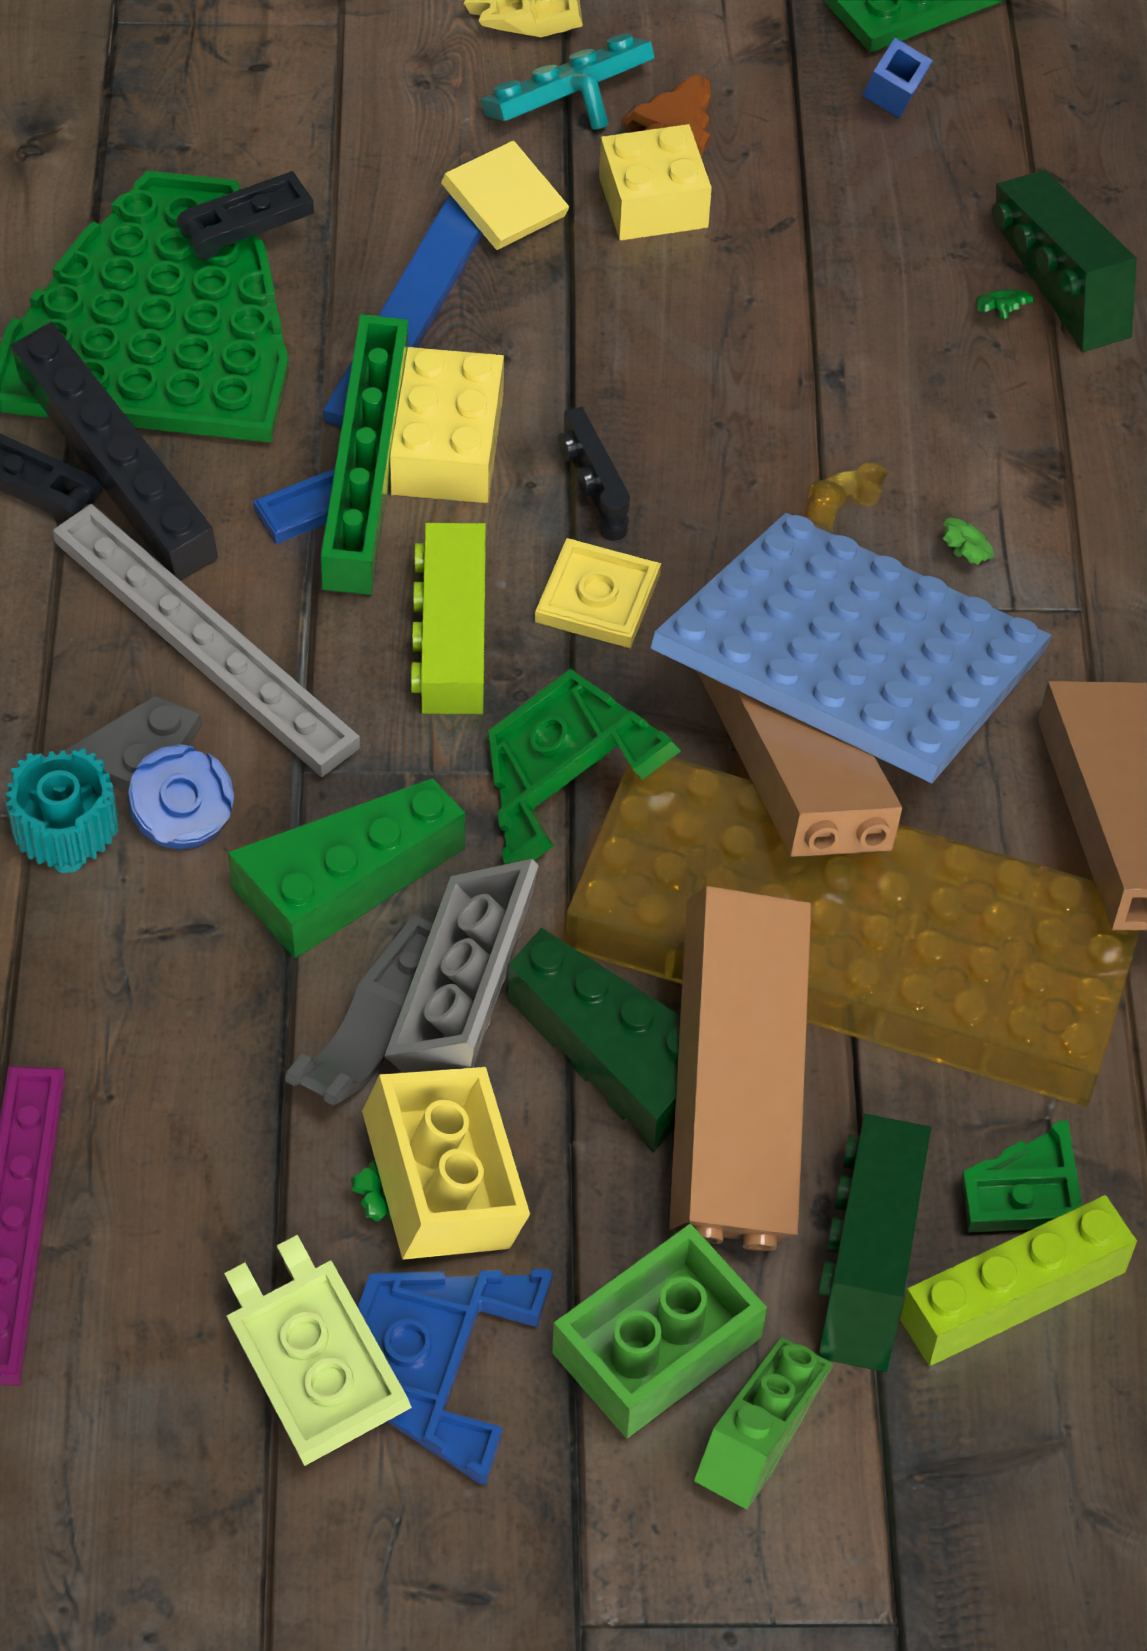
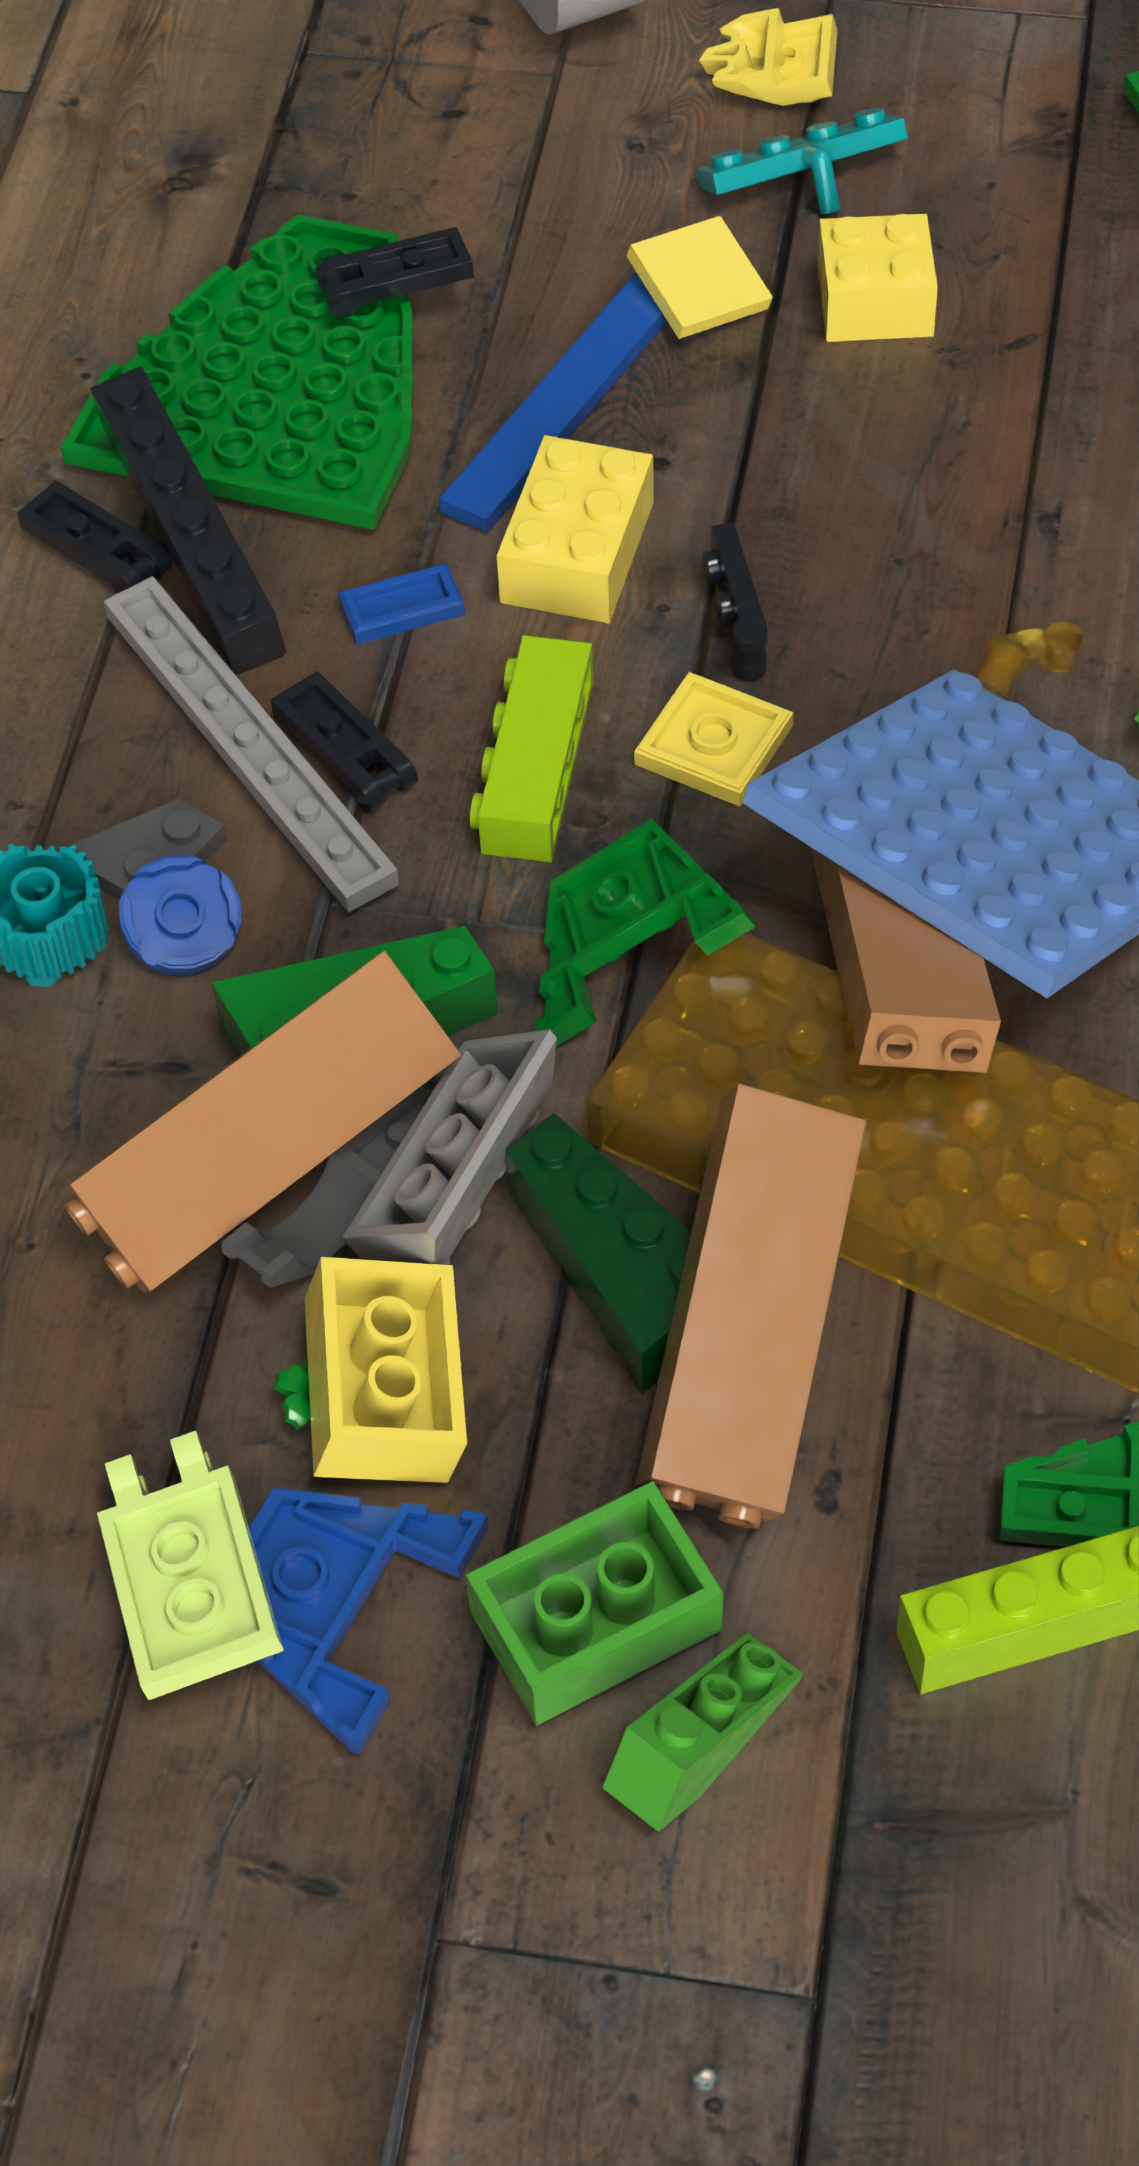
camera: 15 degrees right, 0 degrees up
(287, 629) = (343, 740): none -> black plate
(296, 969) = (259, 1124): none -> medium nougat brick
(364, 456) = (463, 560): green brick -> none
(679, 107) = (929, 194): dark orange rock -> none
(872, 1241) = (874, 1533): dark green wedge -> none

